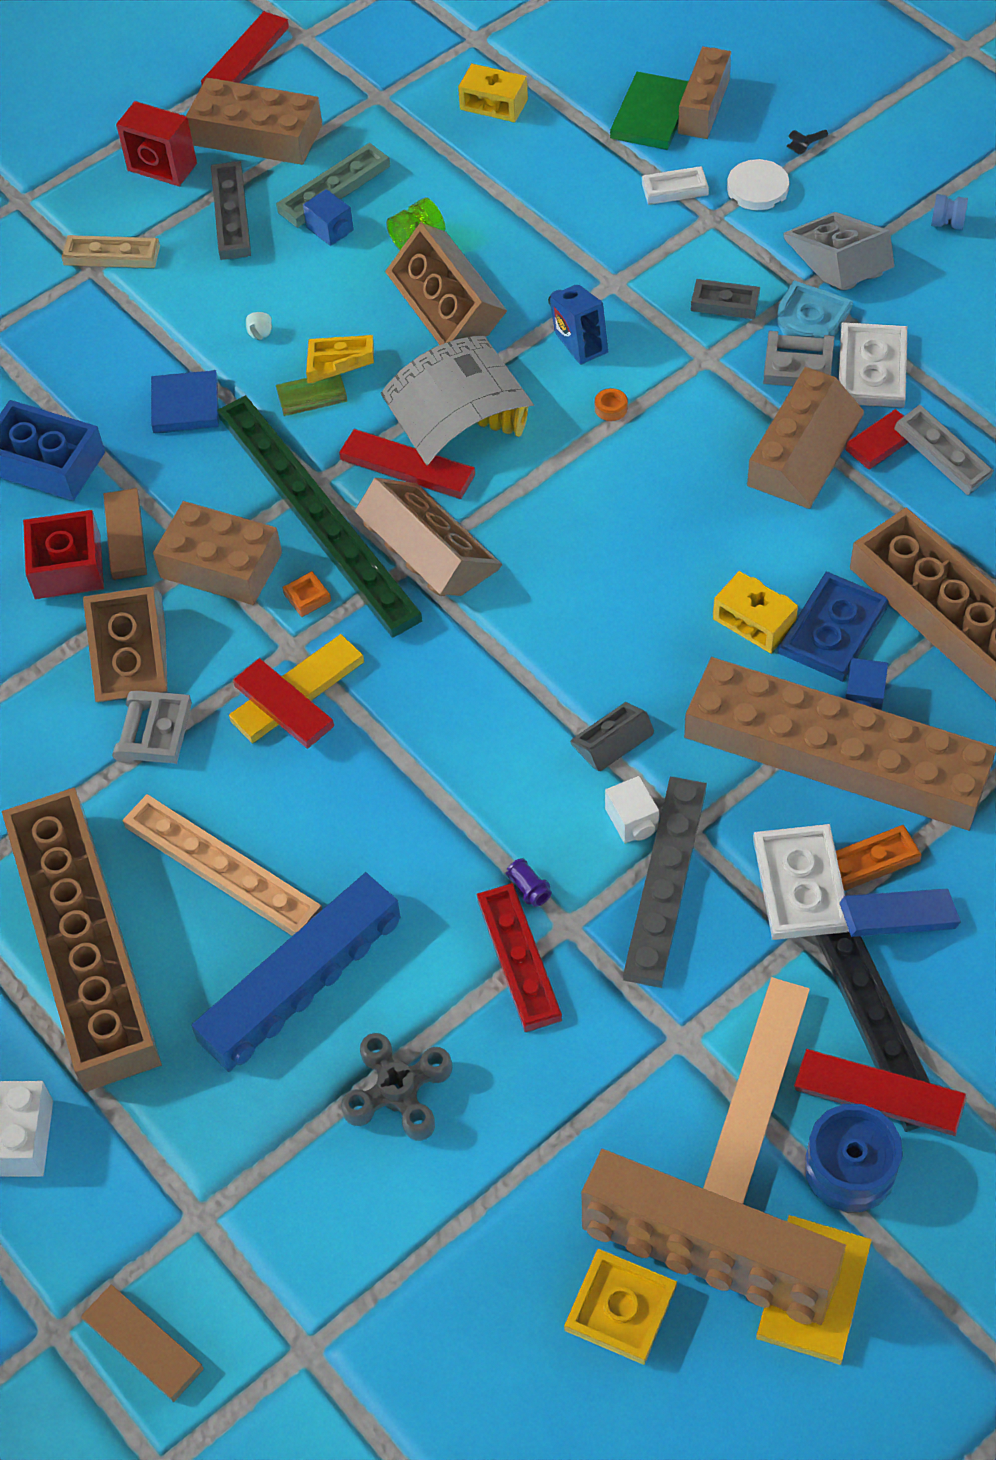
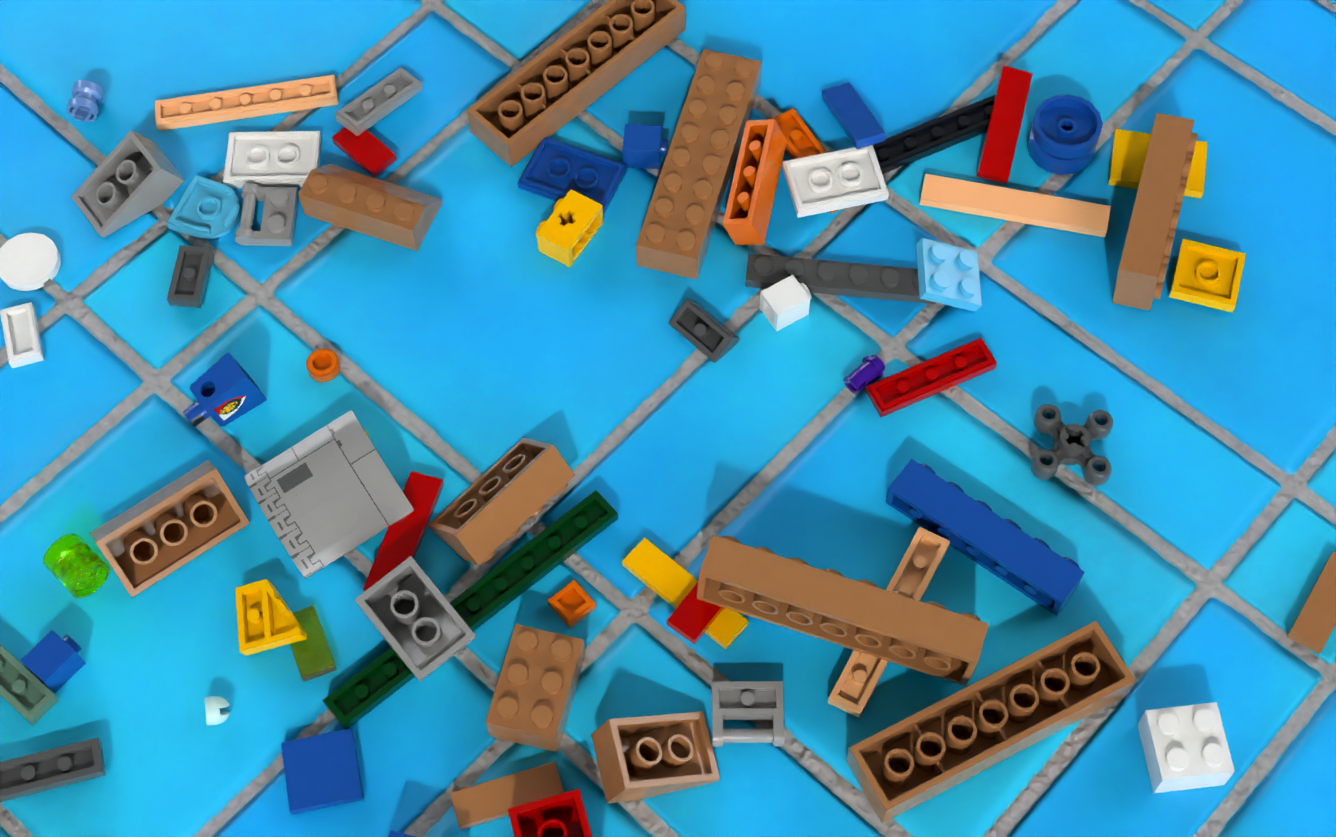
camera: 100 degrees left, 5 degrees up
(215, 794) = (841, 610): none -> medium nougat brick
(301, 450) = (415, 618): none -> light grey slope
(650, 987) = (948, 275): none -> medium azure plate
(799, 790) = (754, 182): none -> orange brick
(950, 345) = (245, 102): none -> light nougat tile

